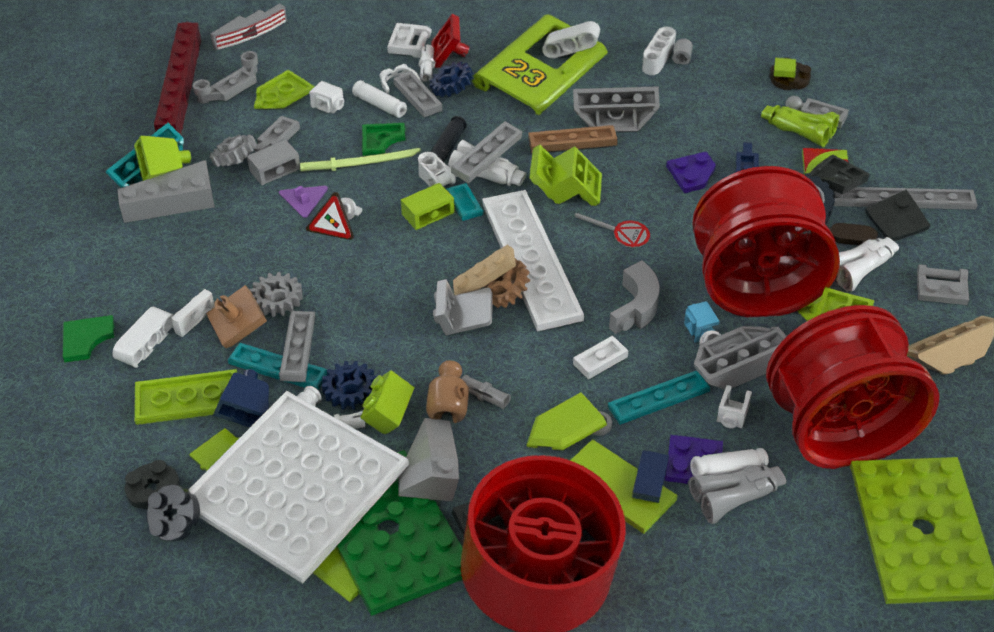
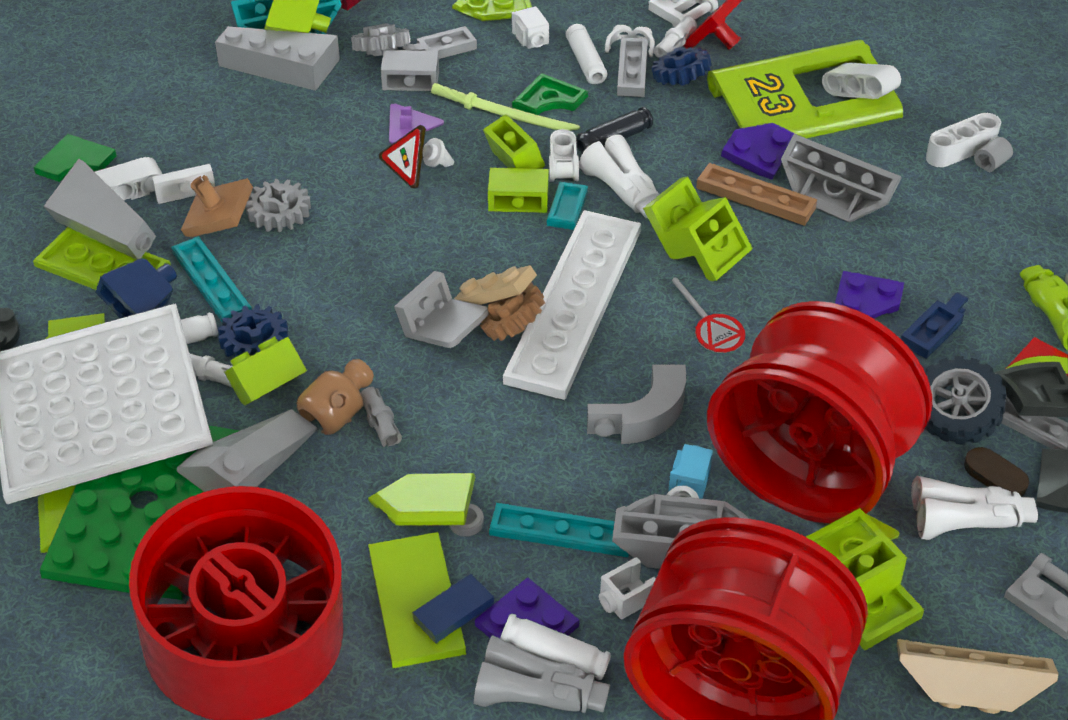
camera: 35 degrees right, 0 degrees up
(159, 359) = (98, 212): none -> light grey slope
(297, 346) = (244, 268): light grey tile -> none
(399, 178) = (513, 144): none -> lime brick
(486, 152) = (629, 159): light grey plate -> none
(549, 110) = (758, 148): none -> dark purple plate
(600, 357) = (538, 449): white plate -> none

